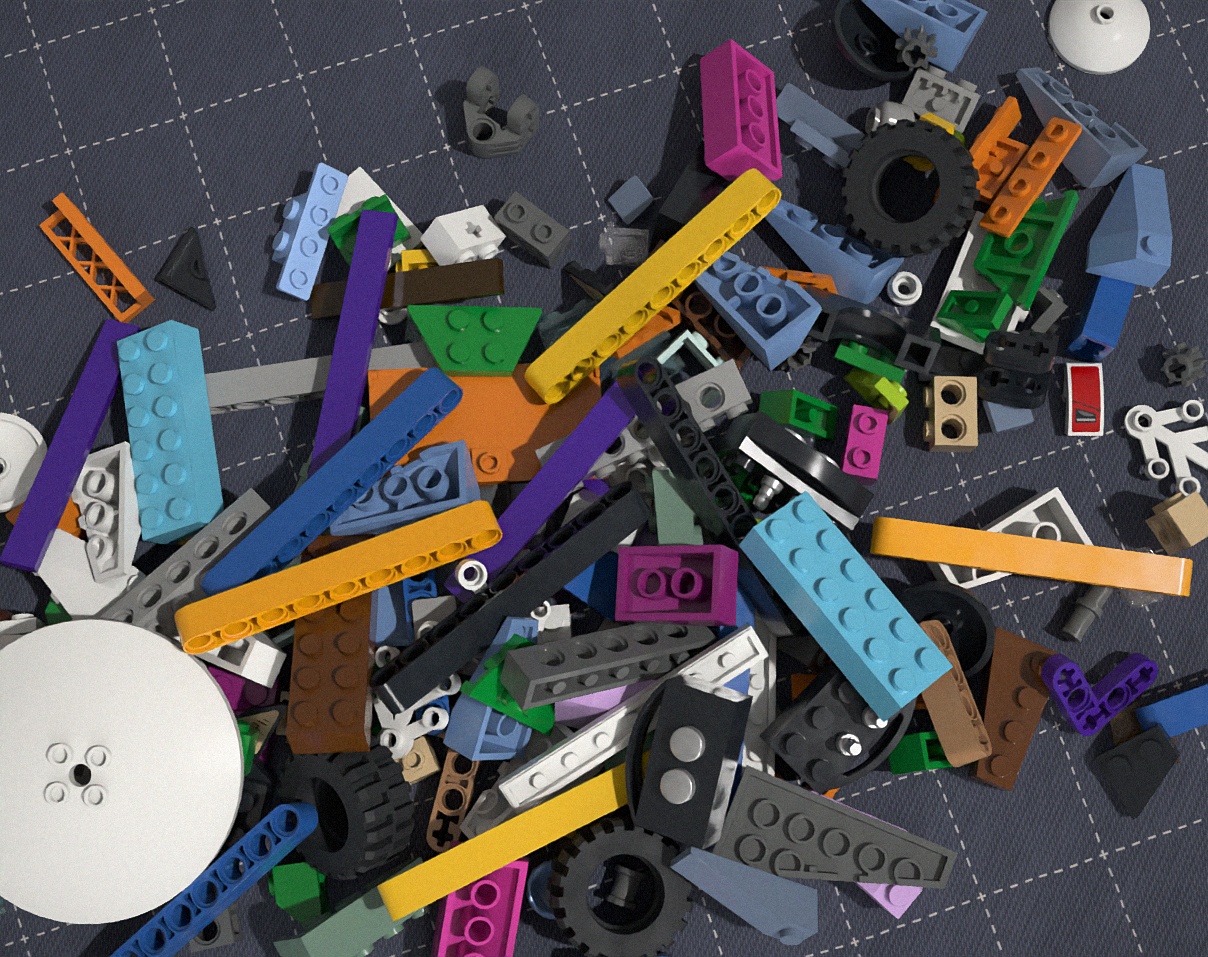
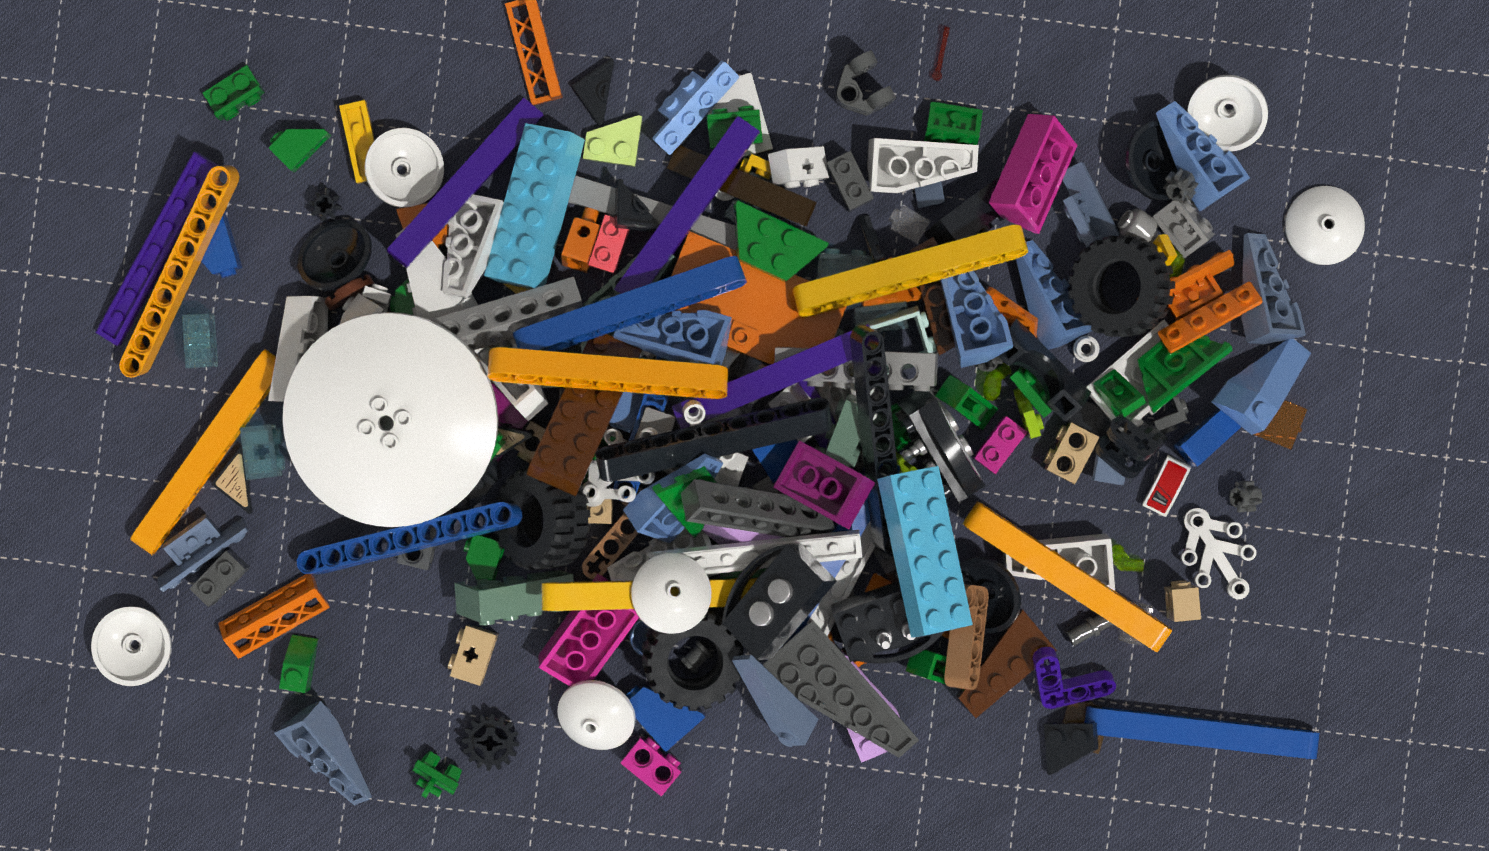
camera: 20 degrees right, 10 degrees up
(238, 320) = (614, 142): none -> yellowish green wing
(247, 449) = (579, 249): none -> orange torso
(283, 435) = (608, 246): none -> coral brick
(288, 381) = (631, 211): none -> black tile
(546, 843) = (653, 598): none -> white dish
(575, 71) = (937, 75): none -> clear red hinge
(595, 172) = (908, 164): none -> white wedge
(622, 116) = (953, 124): none -> green bracket
(816, 376) = (993, 381): none -> clear neon green arm
(1088, 513) = (1123, 562): none -> clear neon green arm
(1184, 271) = (1284, 425): none -> clear orange piece

